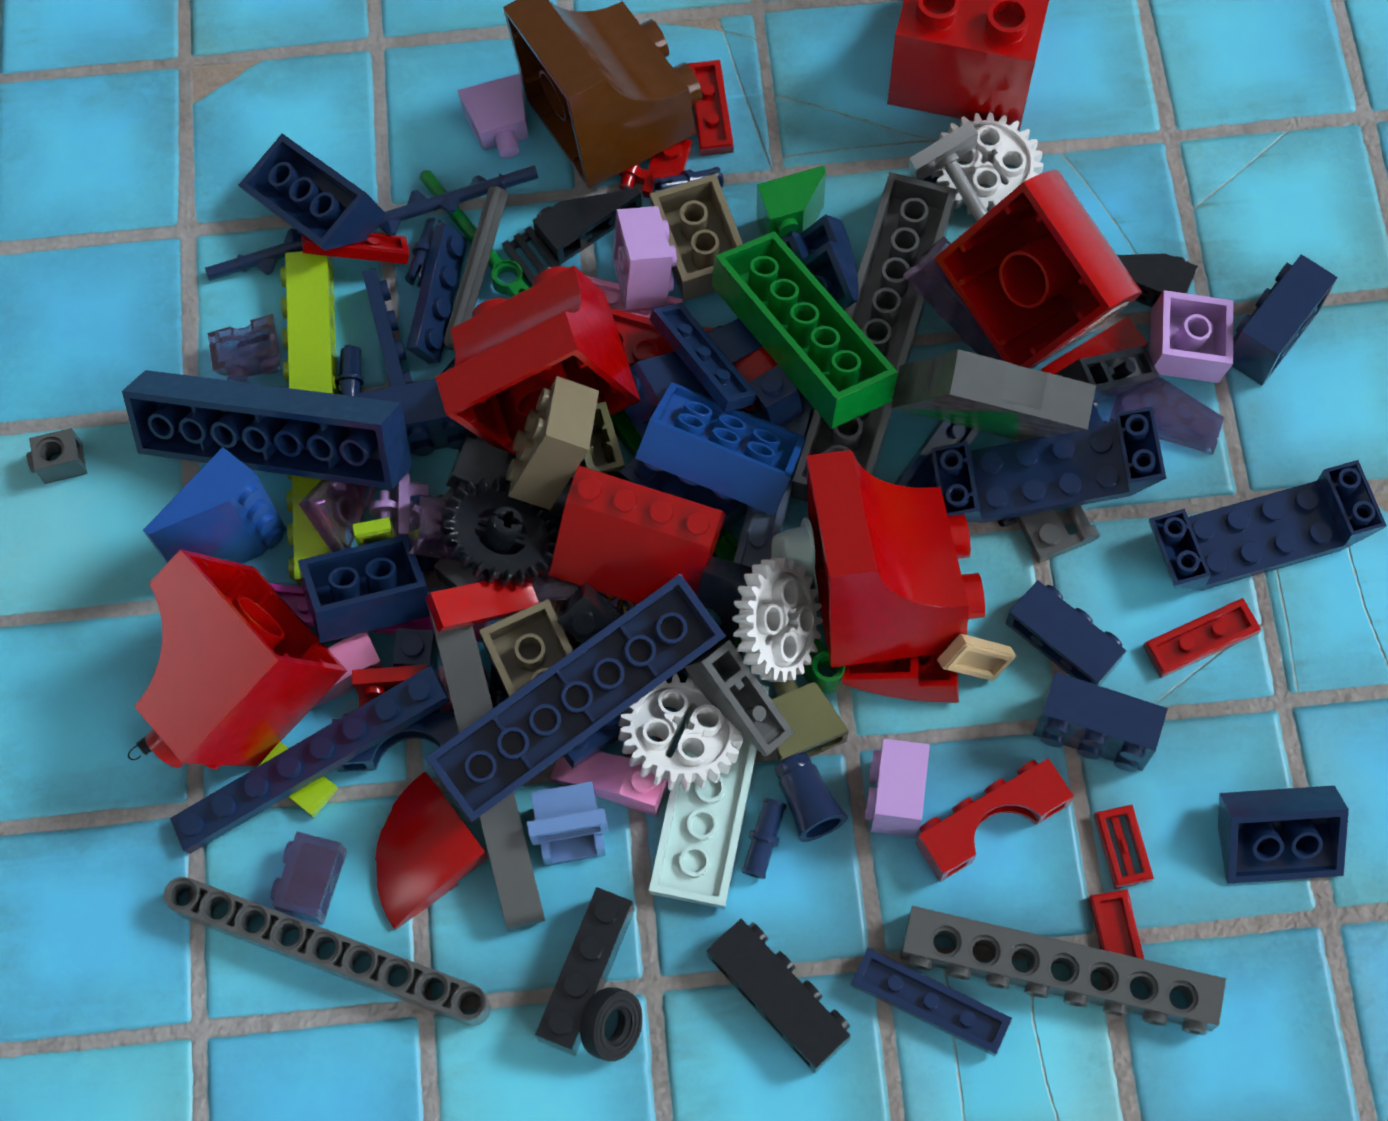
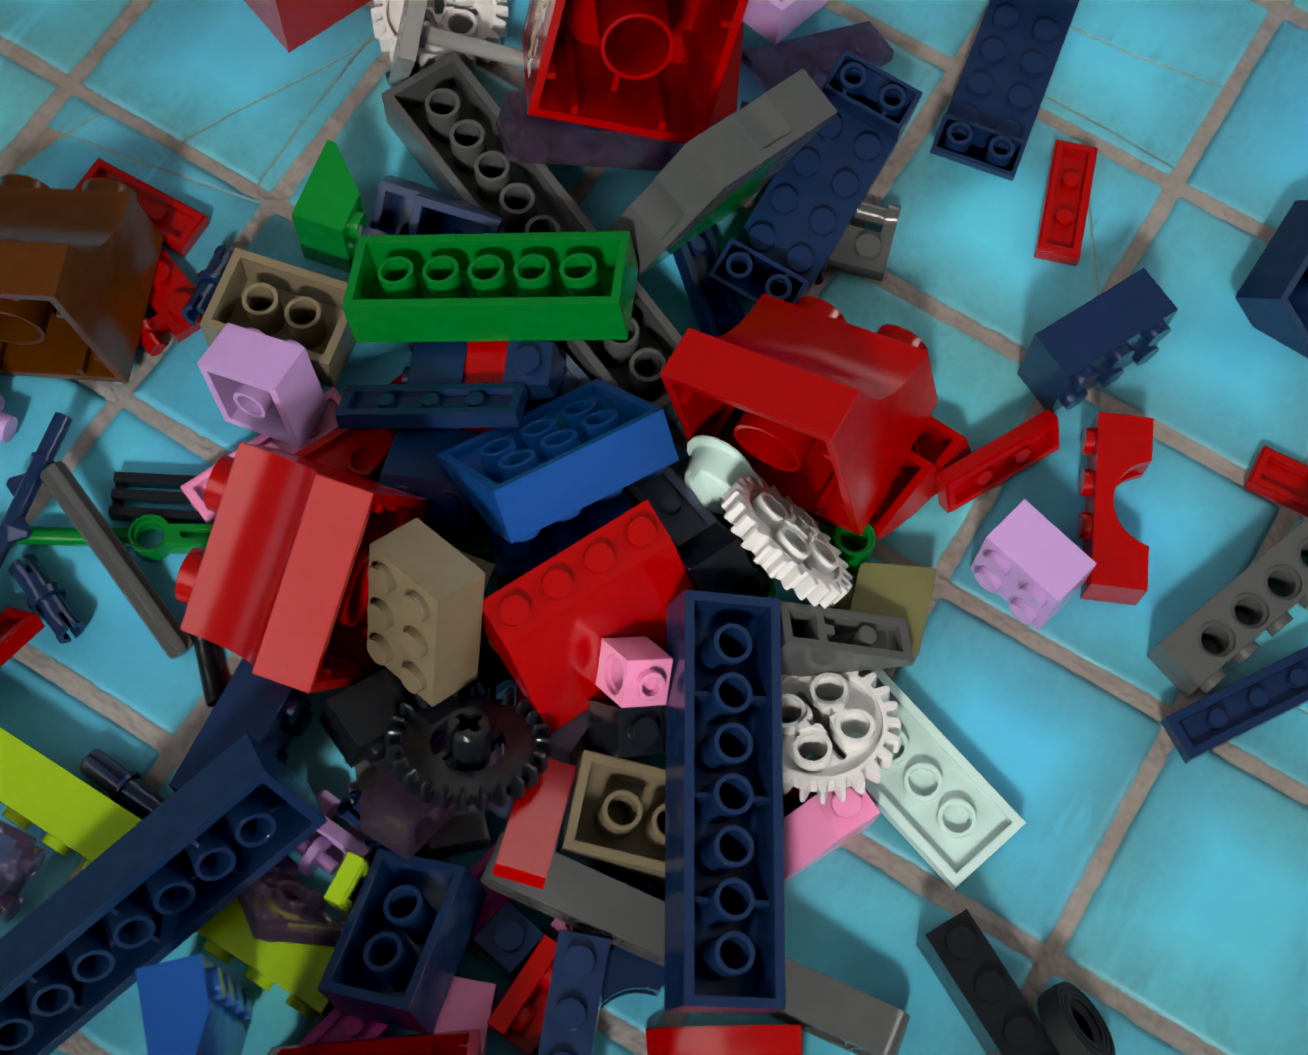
camera: 60 degrees left, 0 degrees up
(386, 324) = (96, 701): dark blue plate -> none
(437, 293) = (108, 620): dark blue plate -> none
(568, 823) = (829, 914): medium blue plate -> none
(581, 221) = (157, 419): black slope -> none
(616, 589) = (634, 671): none -> bright pink brick
(764, 838) = (979, 733): dark blue pin -> none
(779, 995) = (1154, 838): black brick -> none
(808, 798) = (970, 659): dark blue plant -> none
(963, 721) = (997, 461): none -> red tile
(976, 657) = (951, 398): tan tile -> none
(1065, 634) = (981, 309): dark blue brick -> none
(1113, 371) = (762, 65): black slope -> none
(1131, 878) = (1215, 424): red tile -> none

